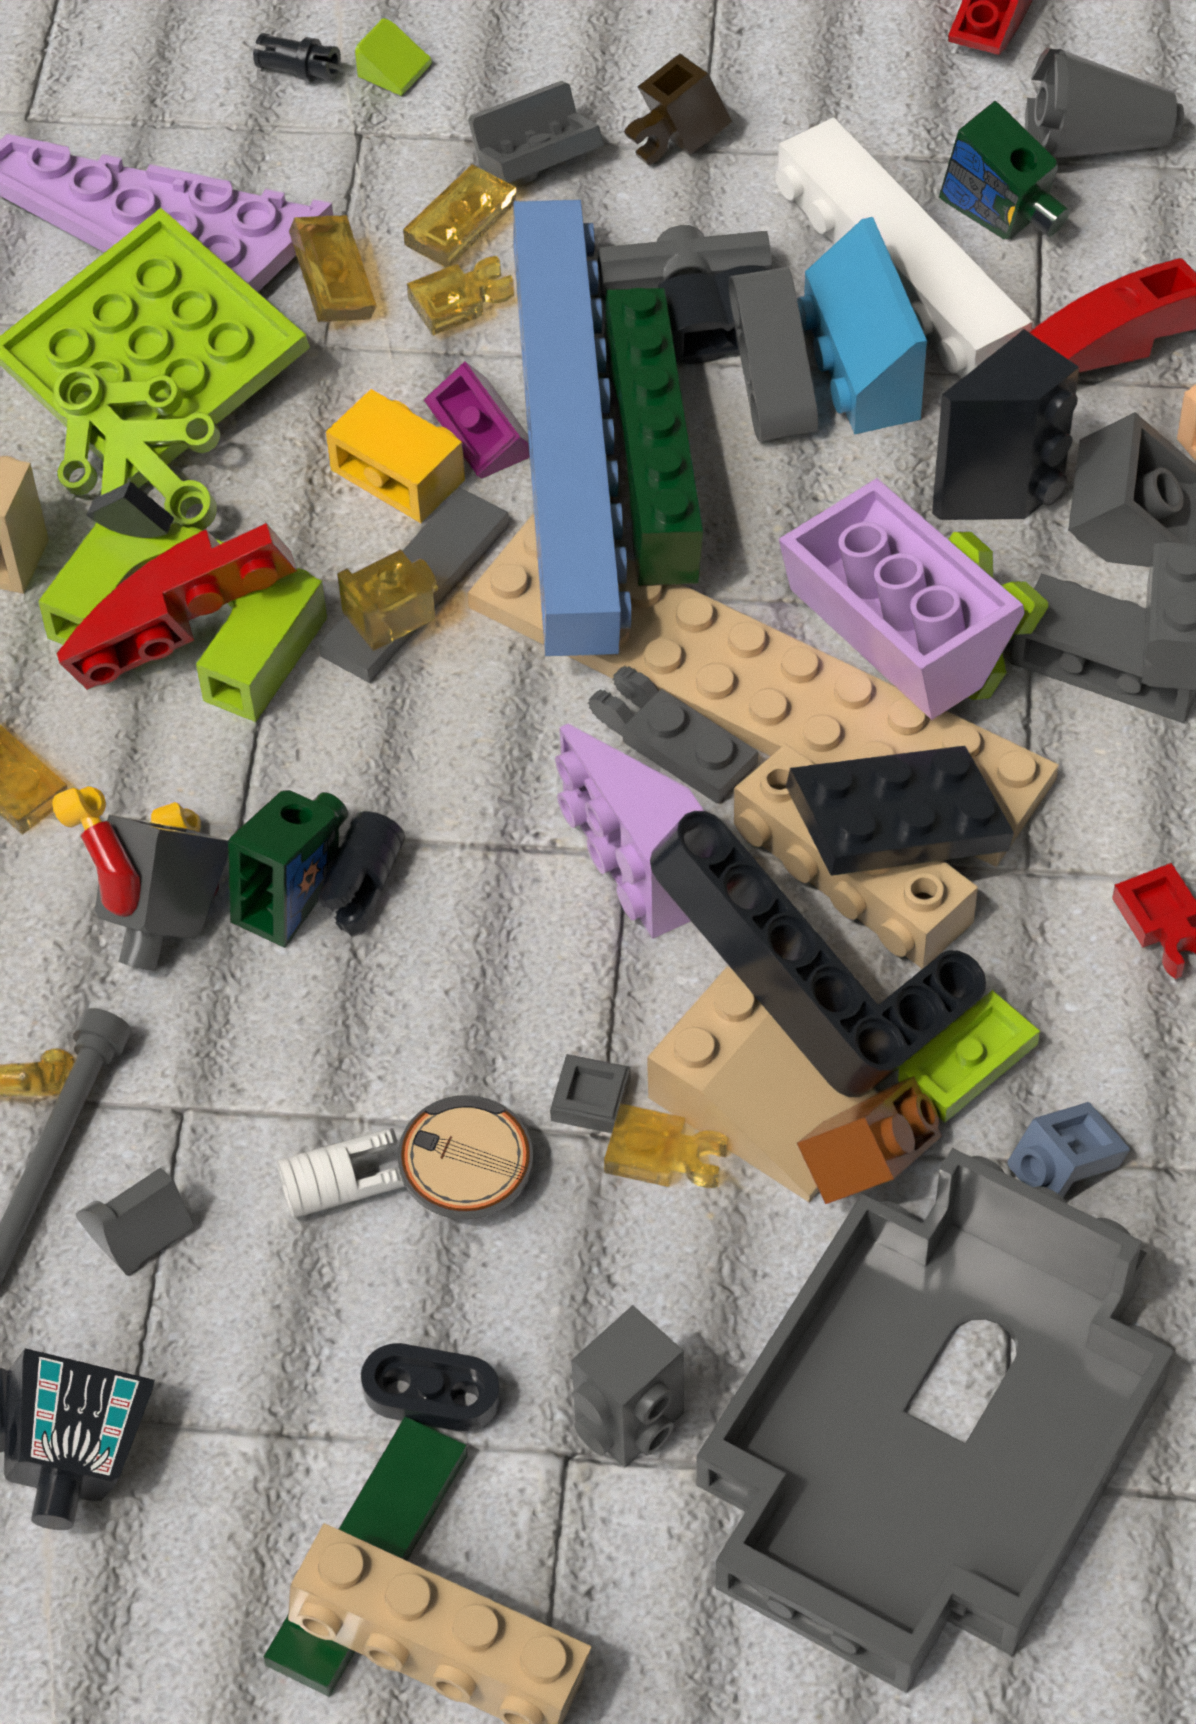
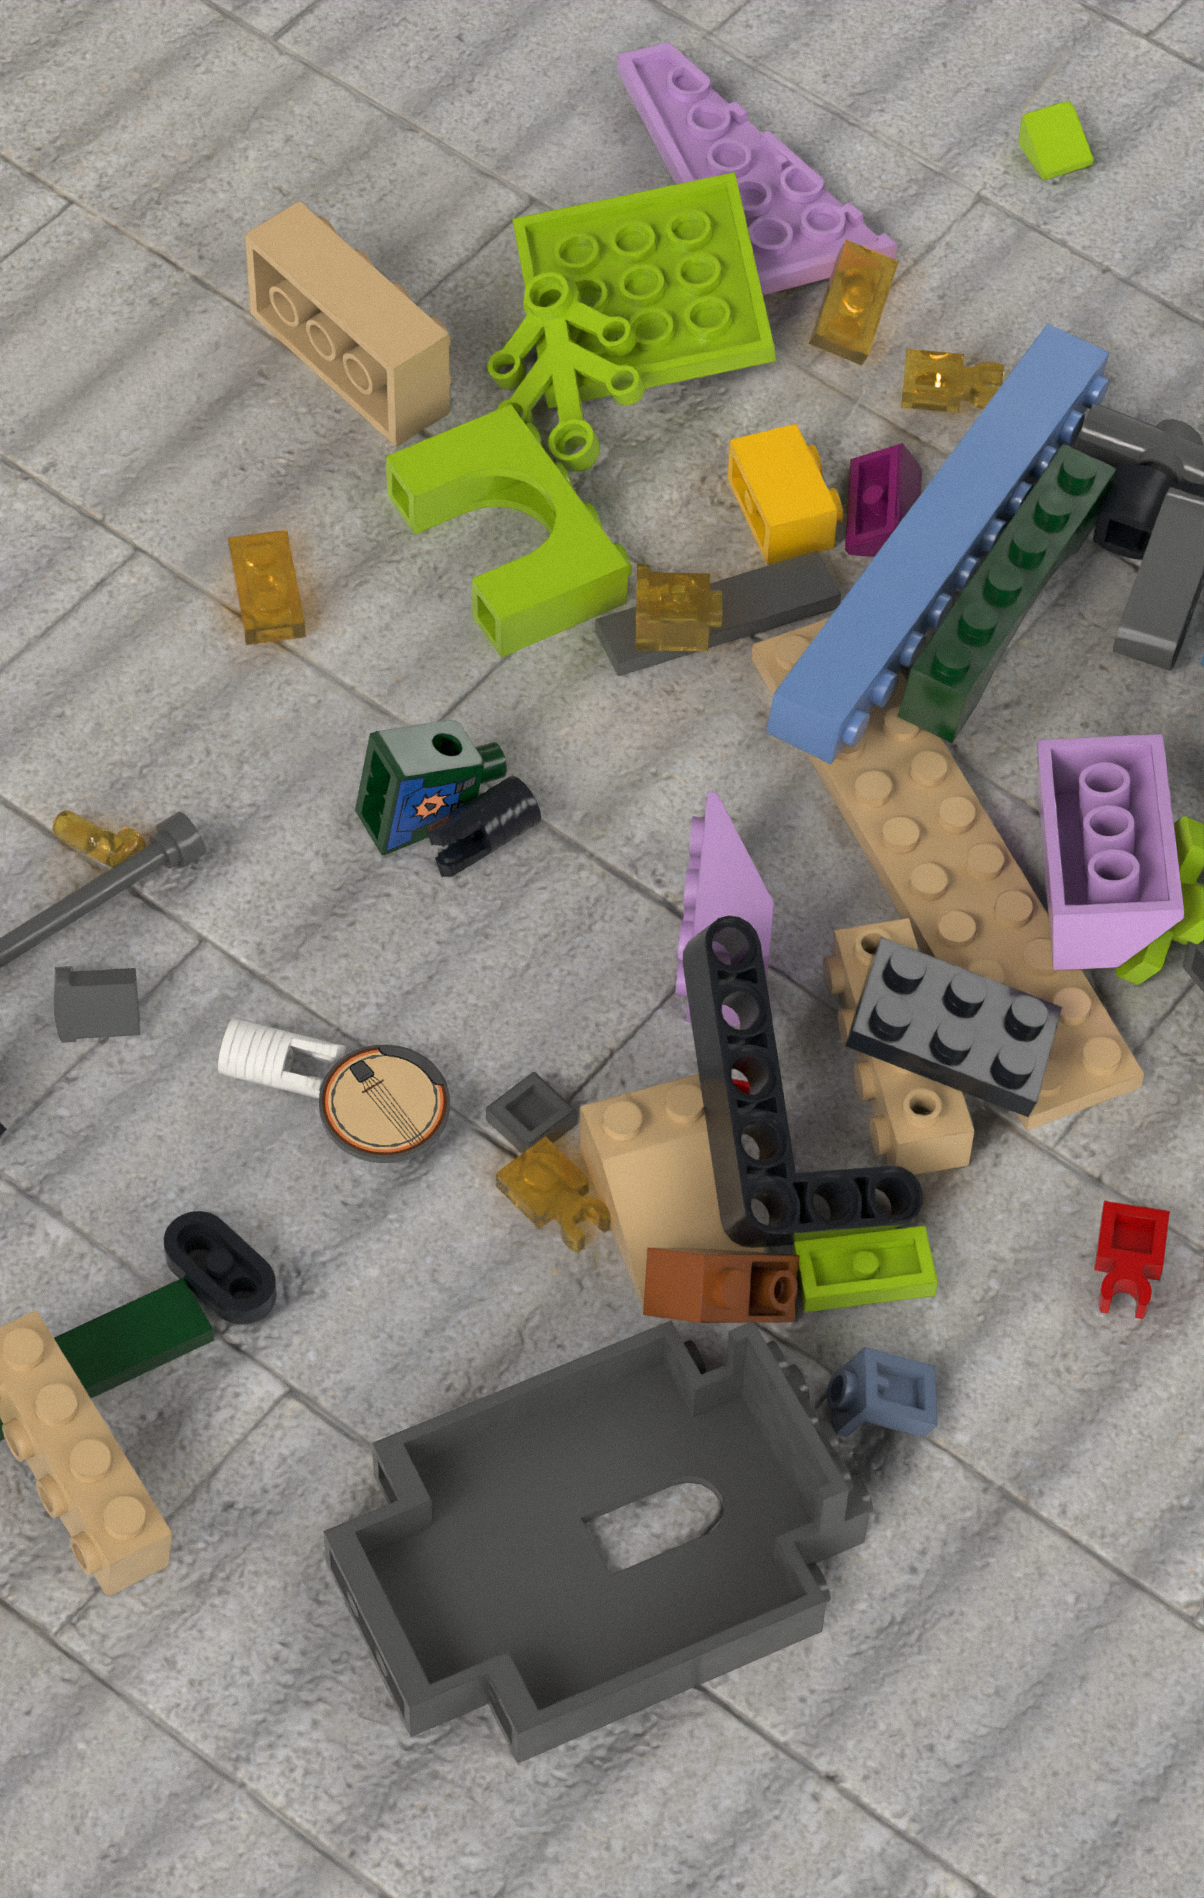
camera: 30 degrees right, 0 degrees up
(130, 513) = (509, 422): tile -> none
(149, 873) = (298, 727): dark grey torso -> none
(153, 606) = (477, 509): red slope -> none
(305, 57) = (976, 101): black pin -> none
(459, 216) = (1002, 313): clear yellow plate -> none
(533, 134) = (1123, 273): dark grey bracket -> none
(628, 1388) = (358, 1357): dark grey brick -> none
(674, 735) = (835, 862): dark grey hinge -> none

